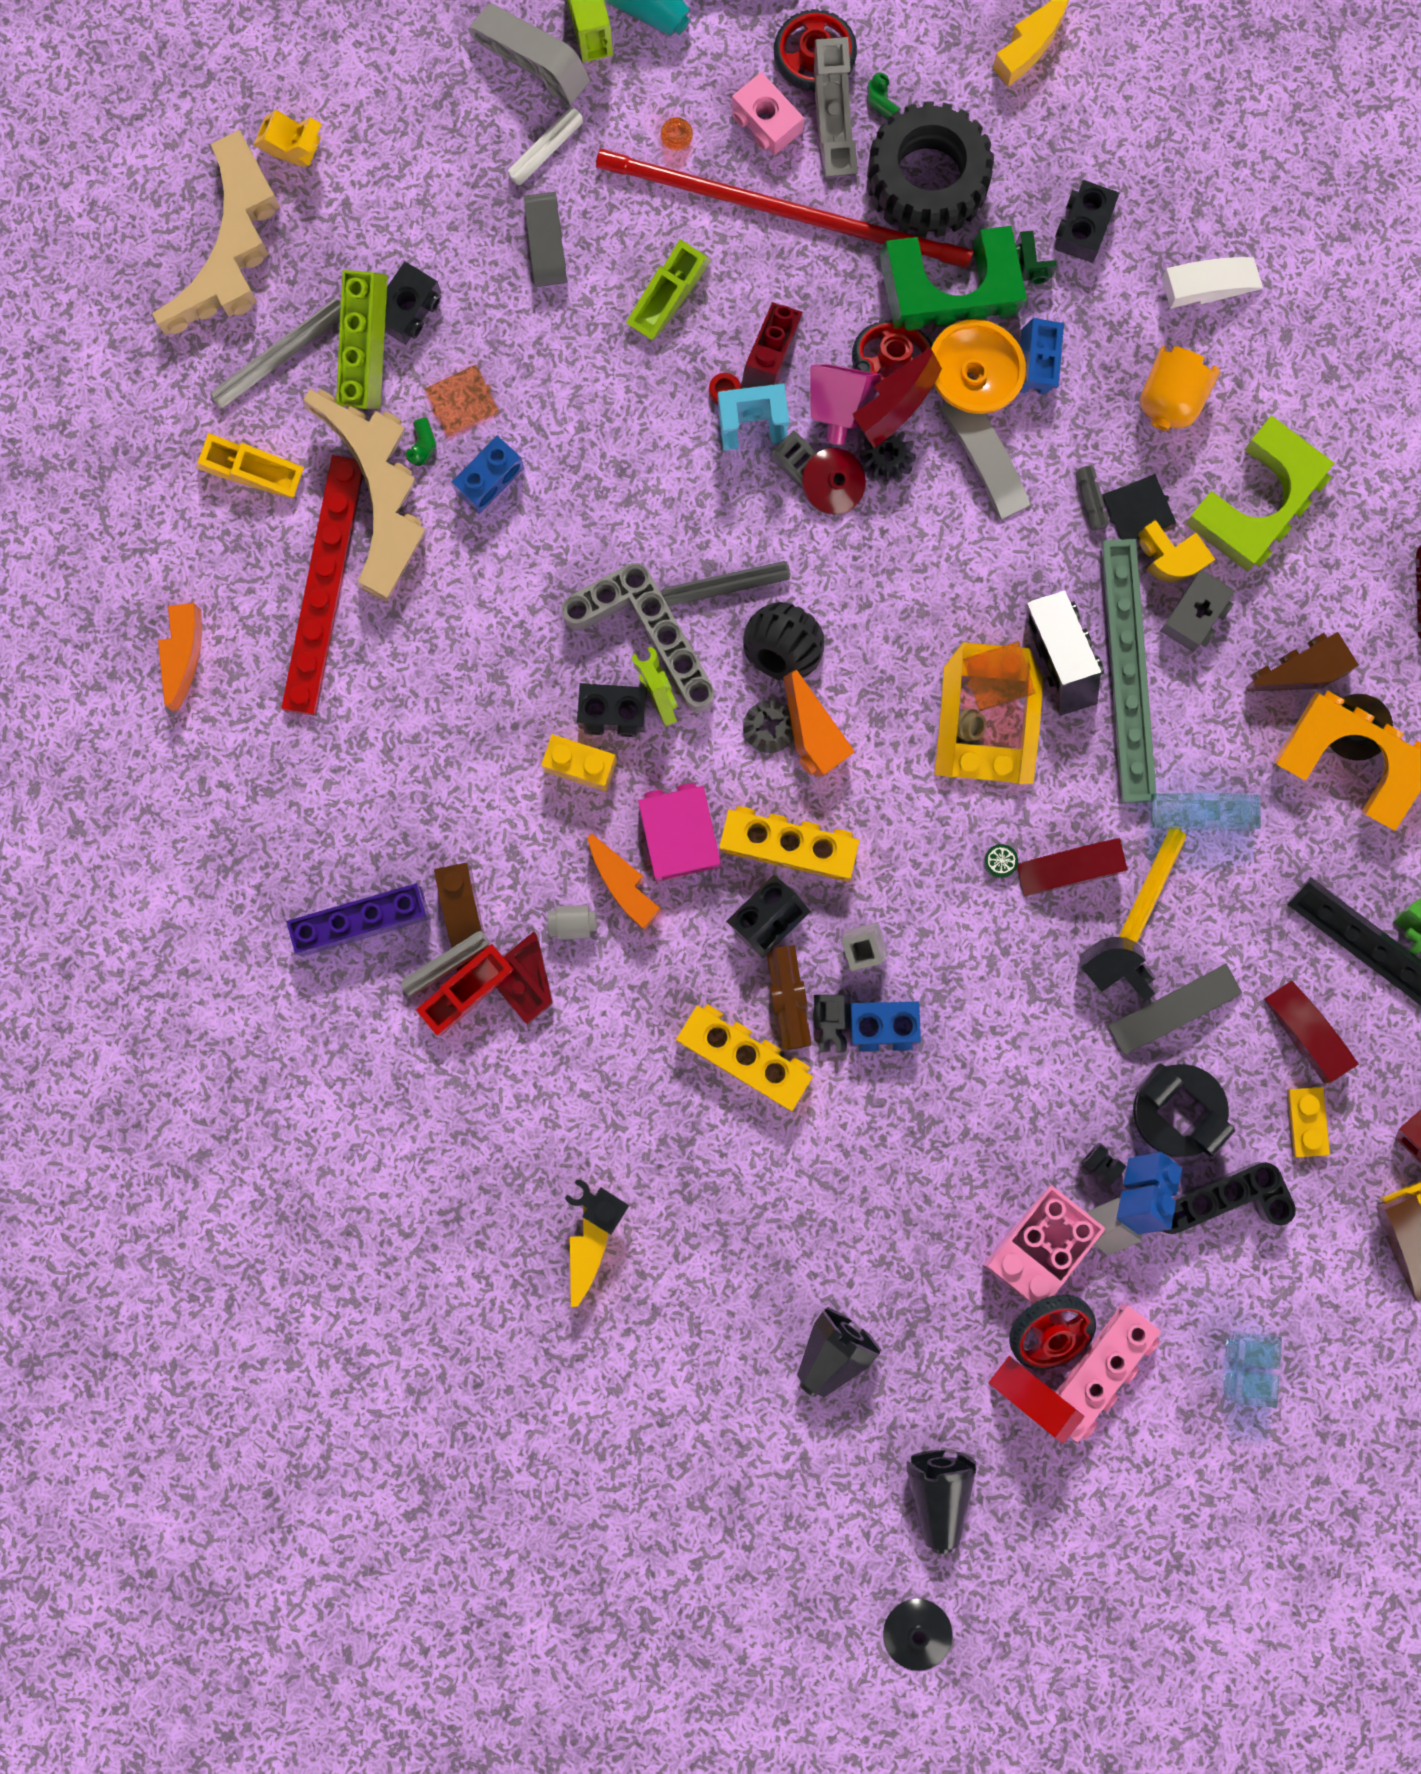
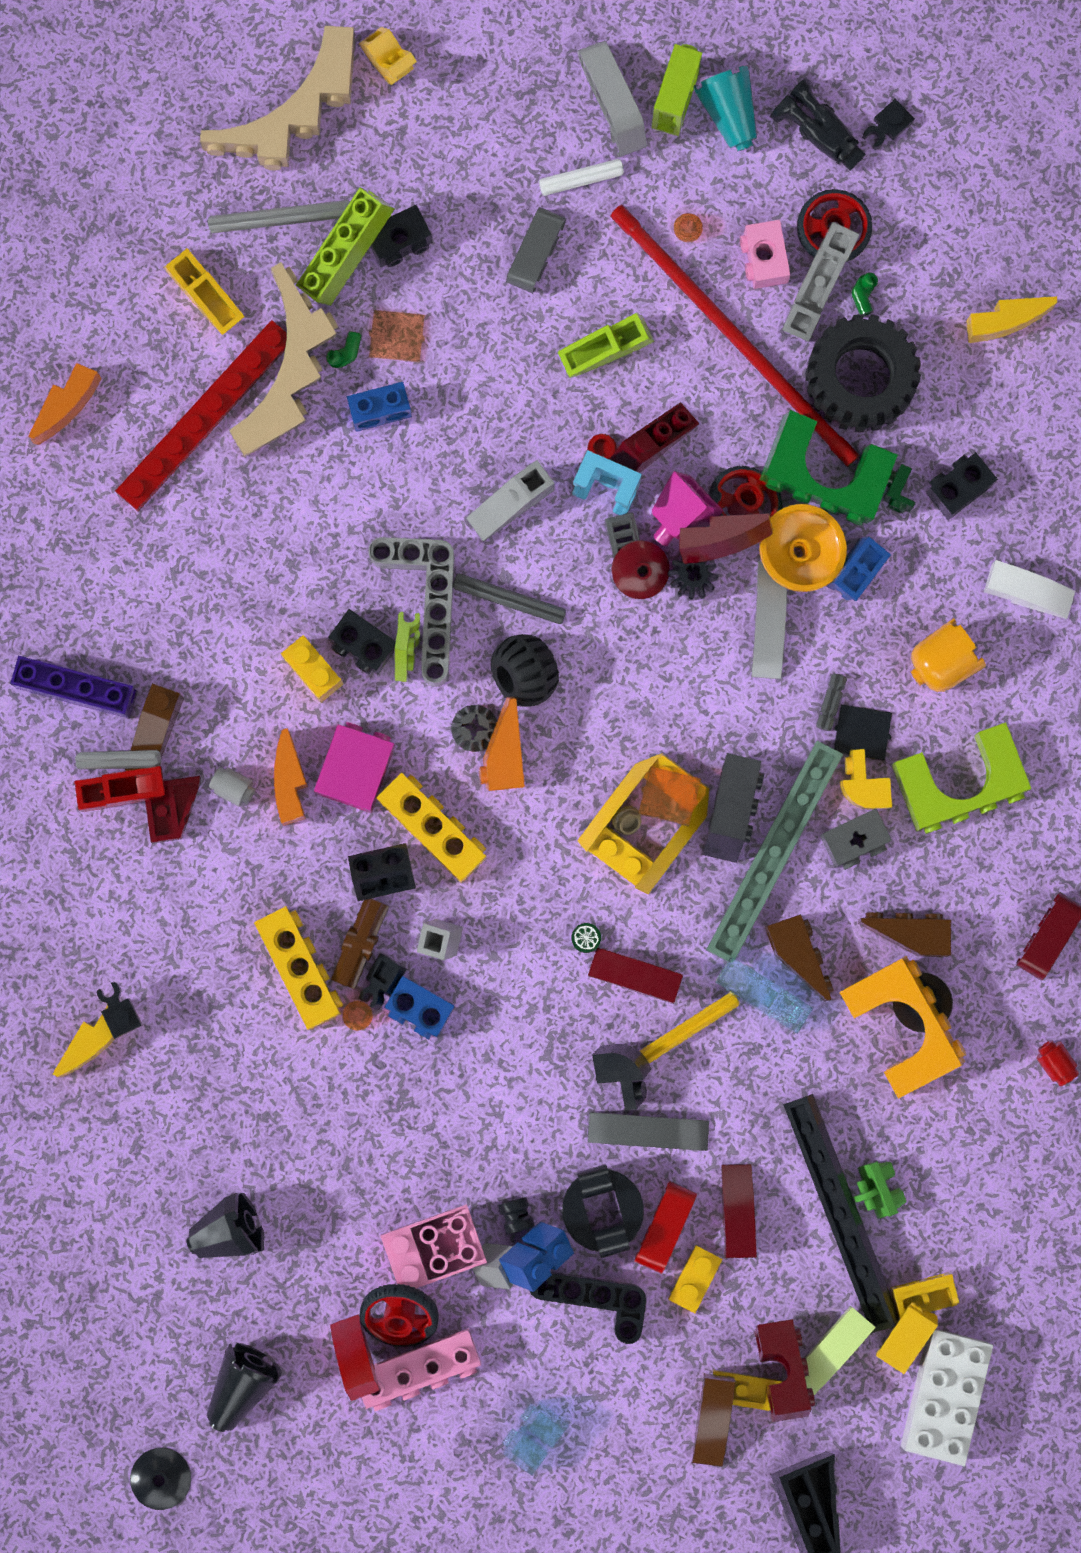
camera: 25 degrees right, 0 degrees up
(671, 487) = (511, 500): none -> light grey slope
(829, 1068) = (357, 1015): none -> clear orange plate
(1207, 751) = (794, 949): none -> reddish brown slope
(1252, 1090) = (665, 1227): none -> red beam

